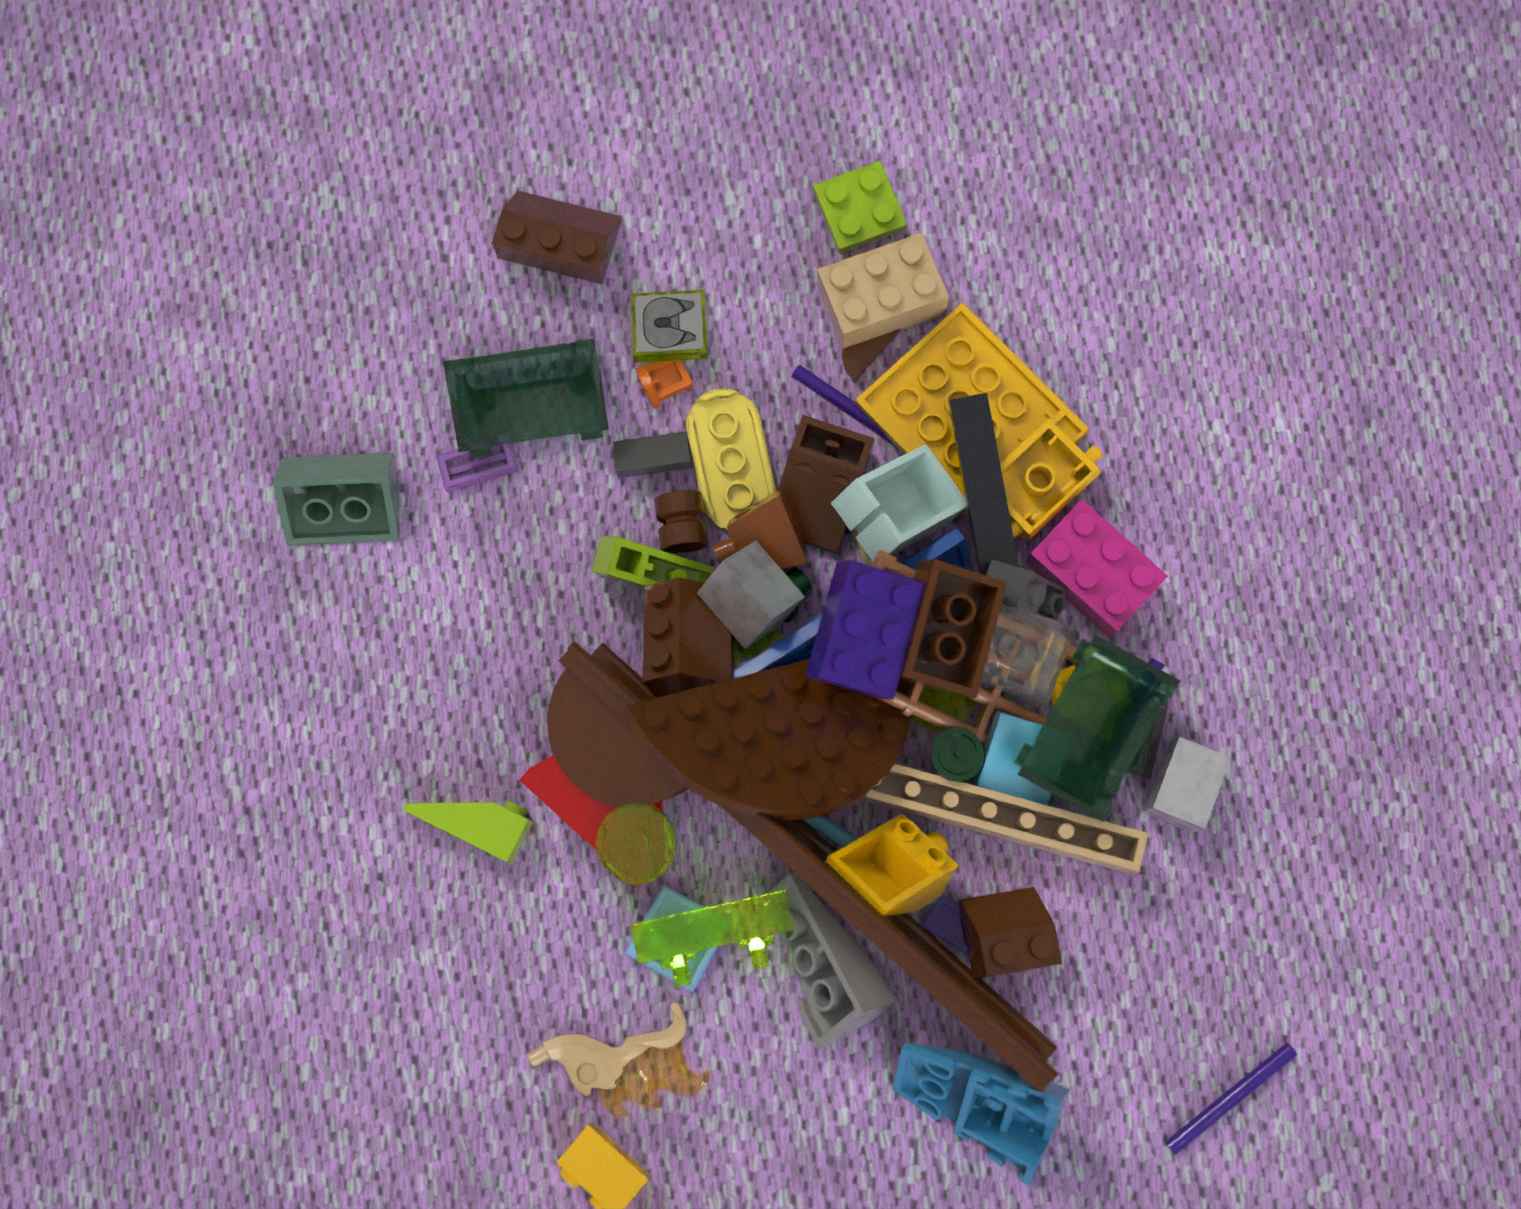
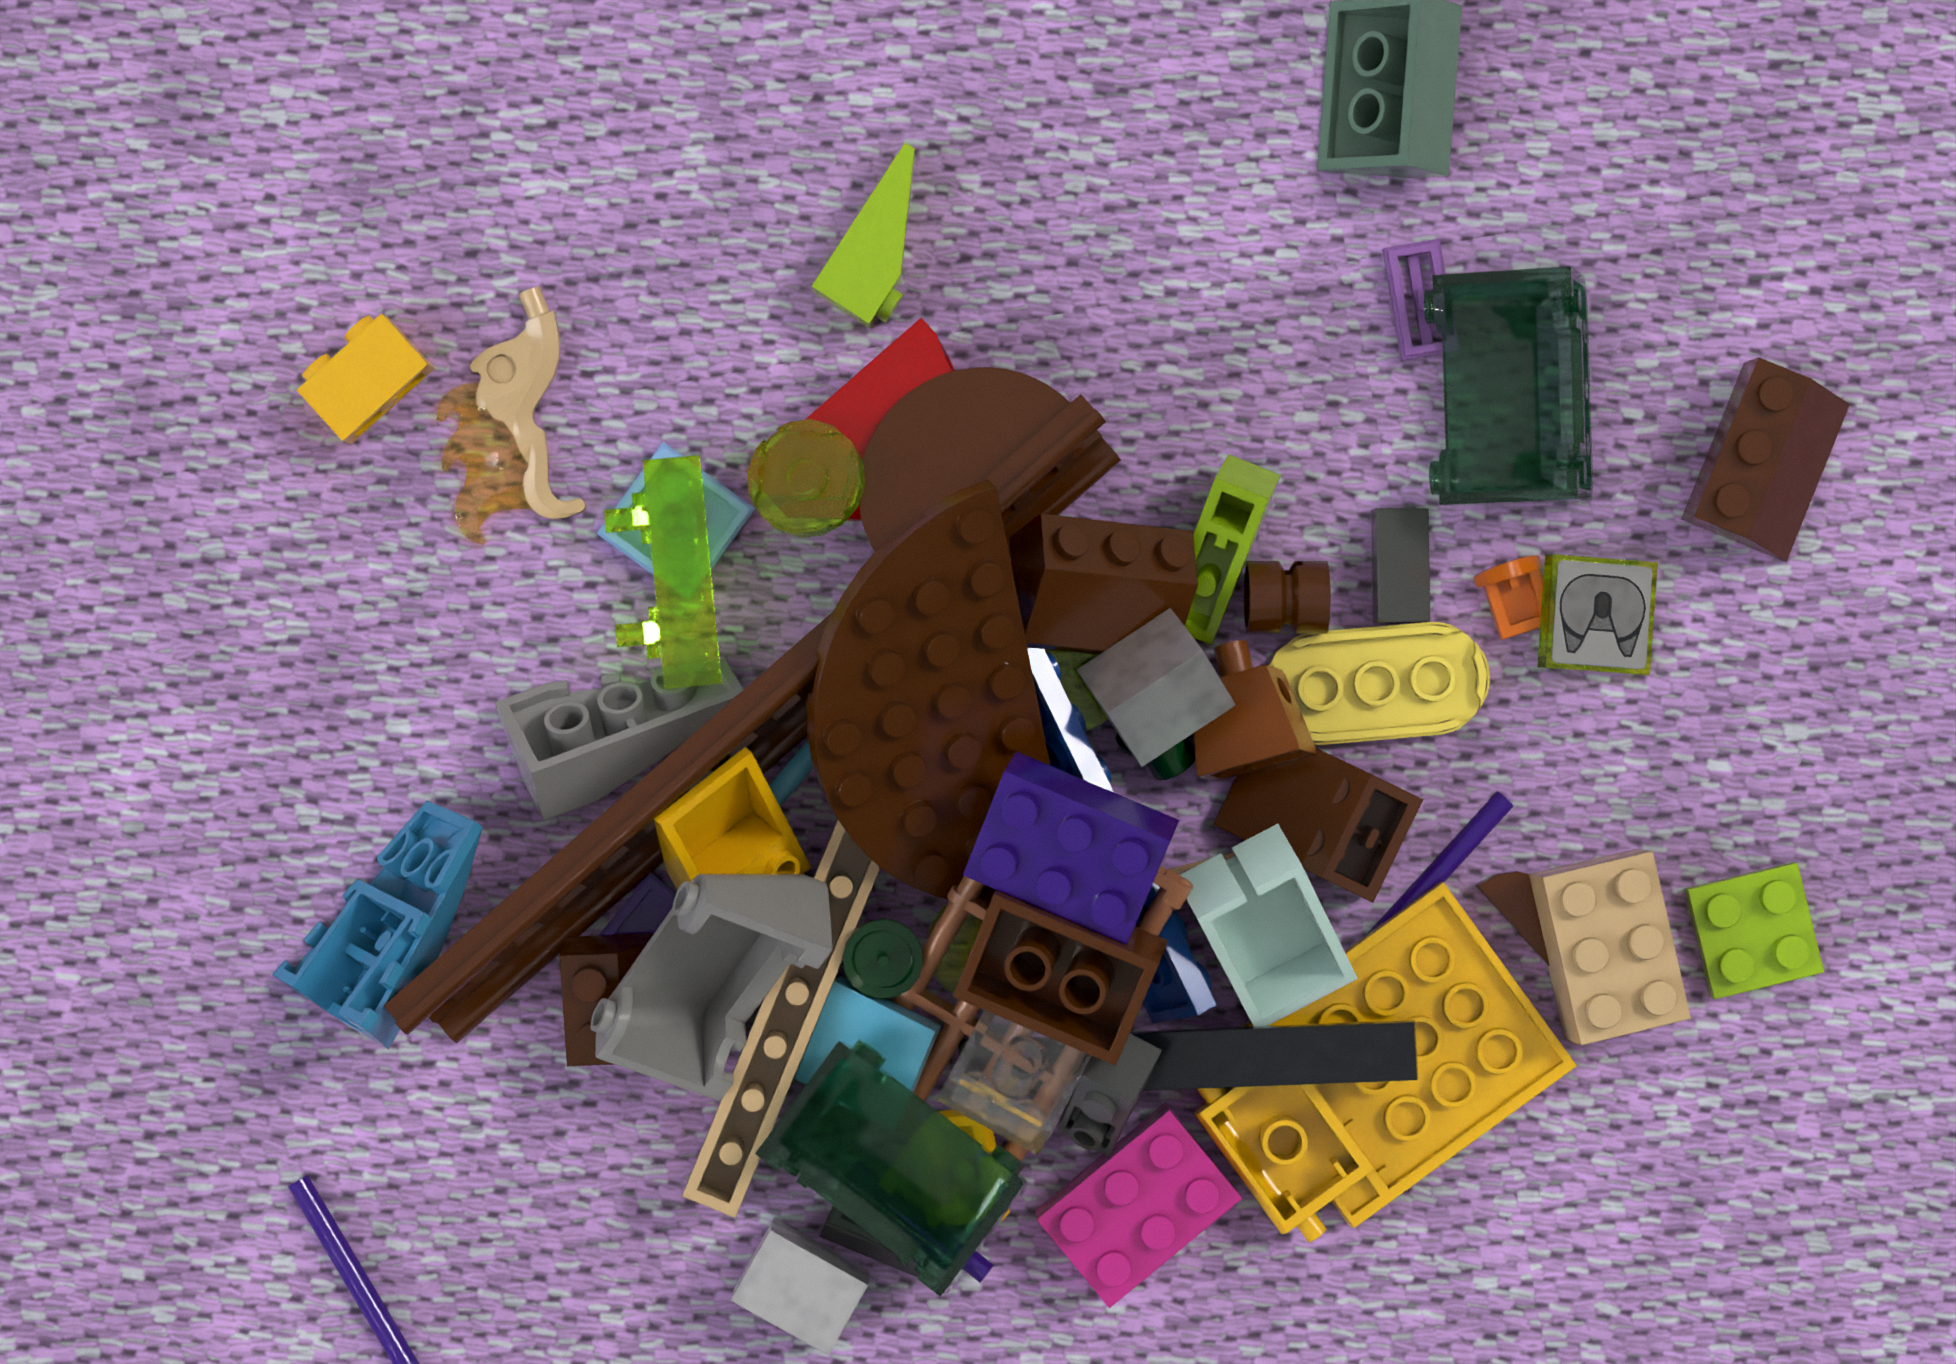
camera: 95 degrees right, 10 degrees up
(982, 870) = (709, 973): none -> light grey windscreen

